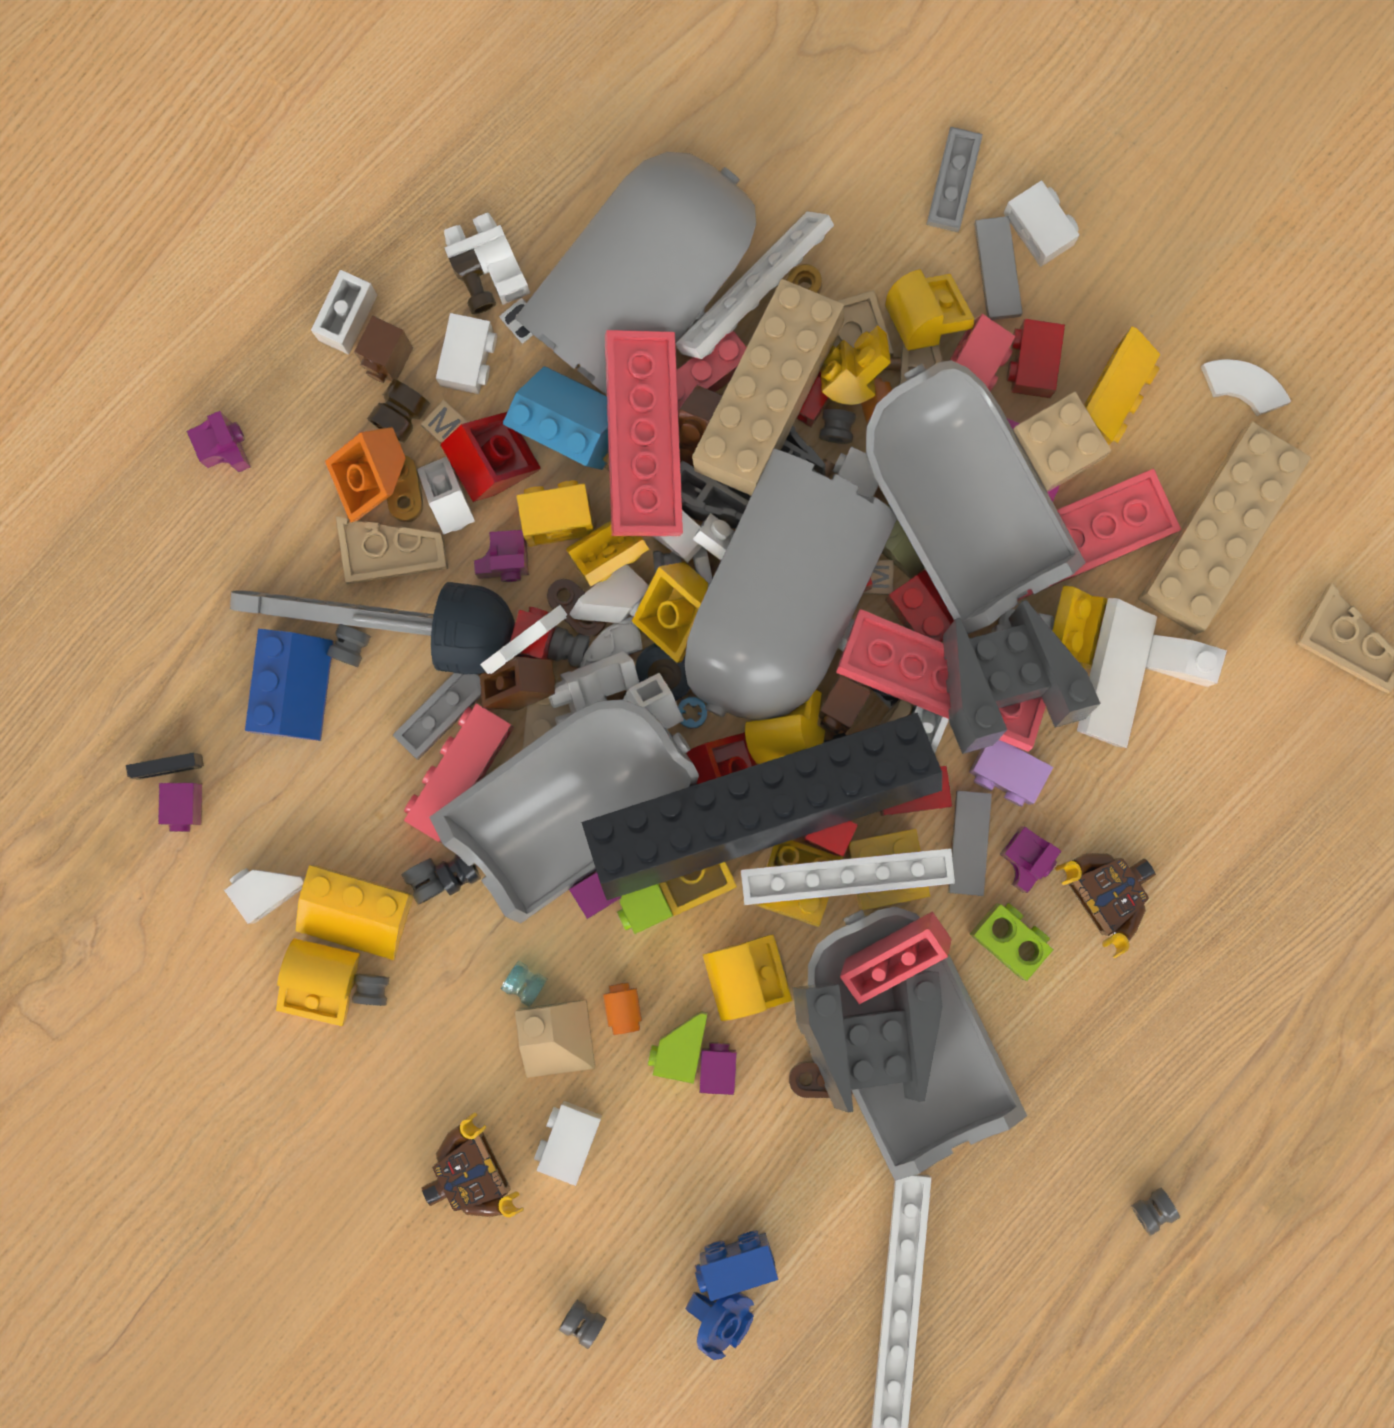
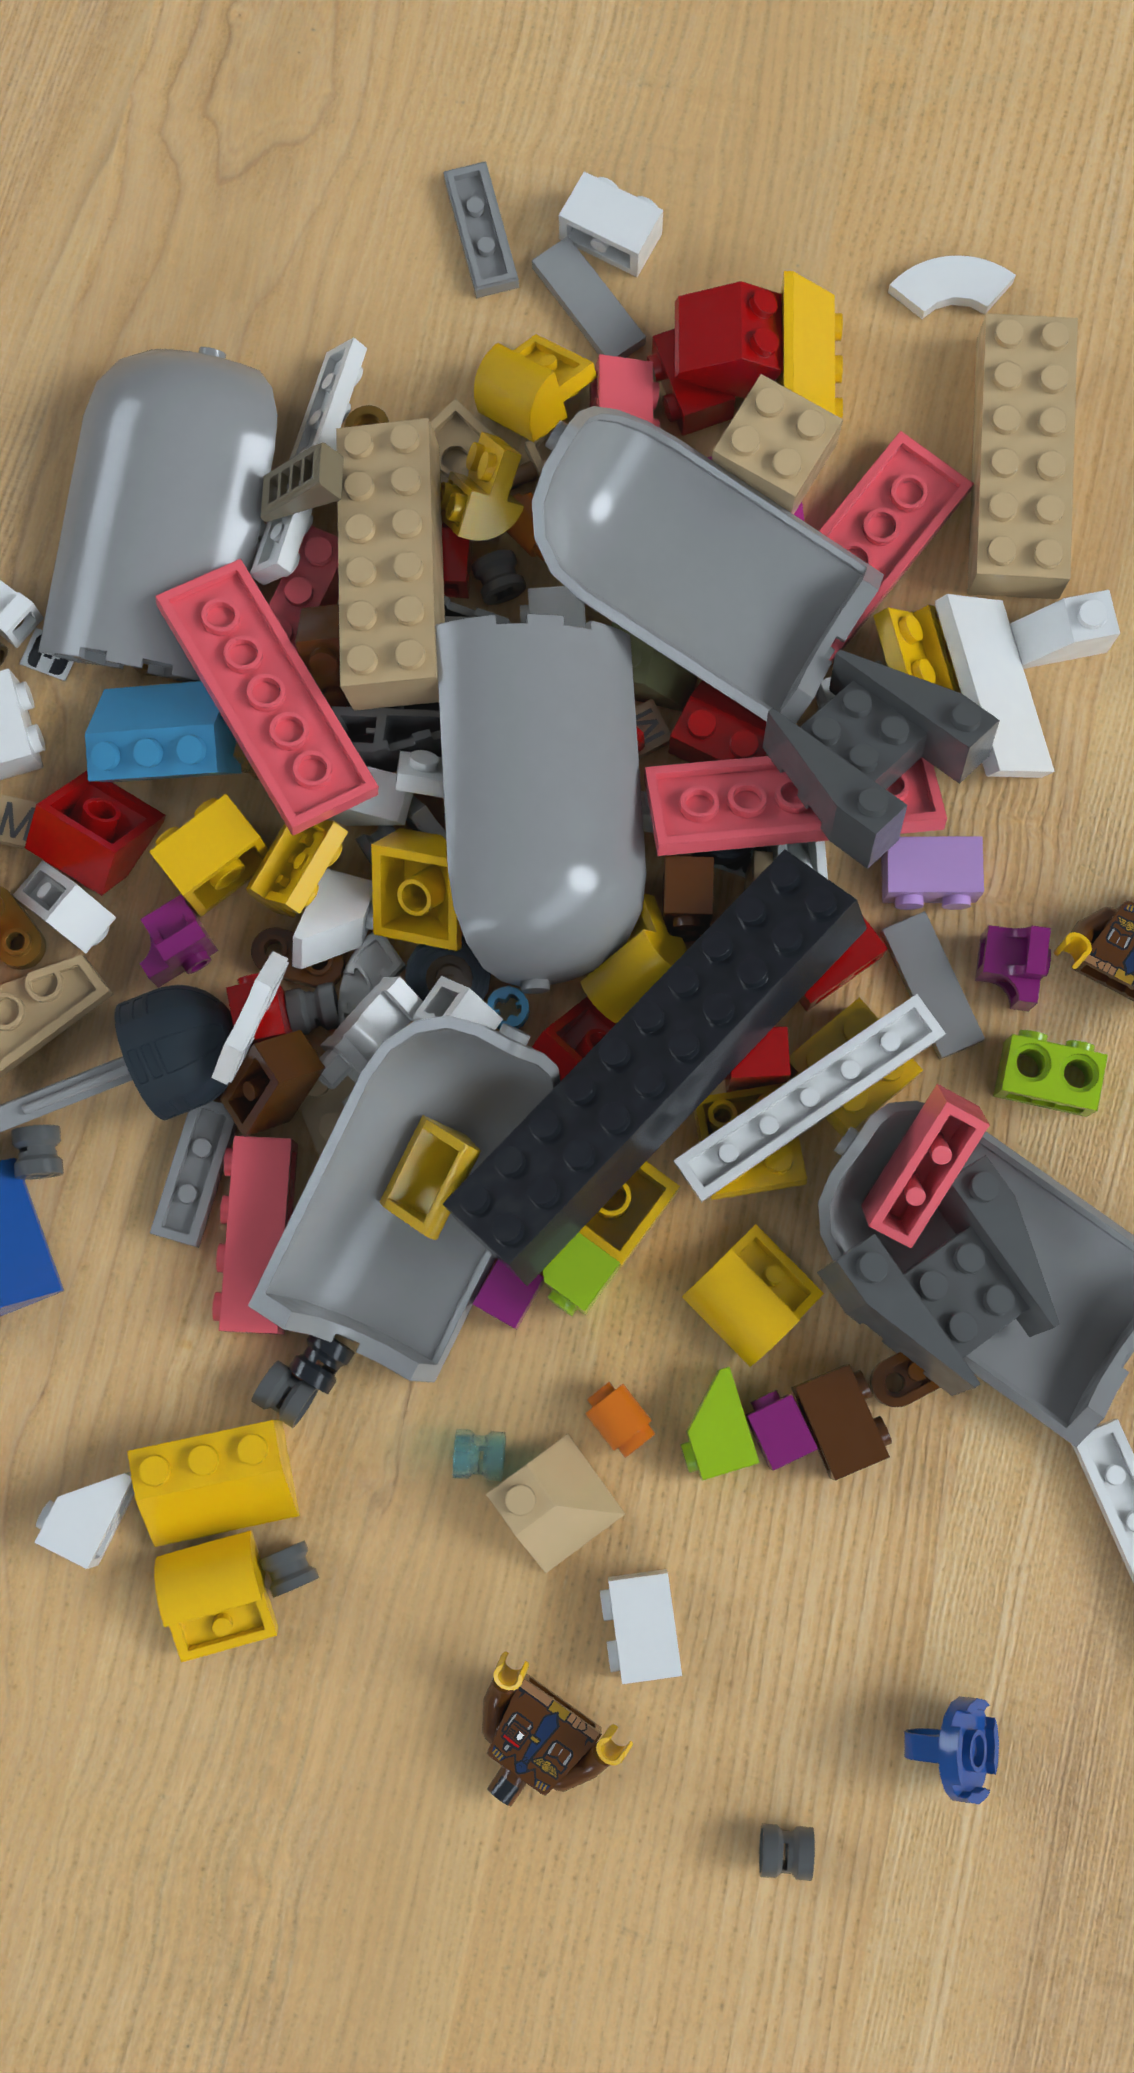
camera: 25 degrees left, 5 degrees down
(584, 796) = (427, 1174): none -> yellow tile
(736, 1265) = (940, 1665): blue brick -> none
(752, 317) = (323, 488): none -> dark tan slope
(759, 1085) = (842, 1421): none -> reddish brown brick
(1072, 349) = (728, 337): none -> red slope

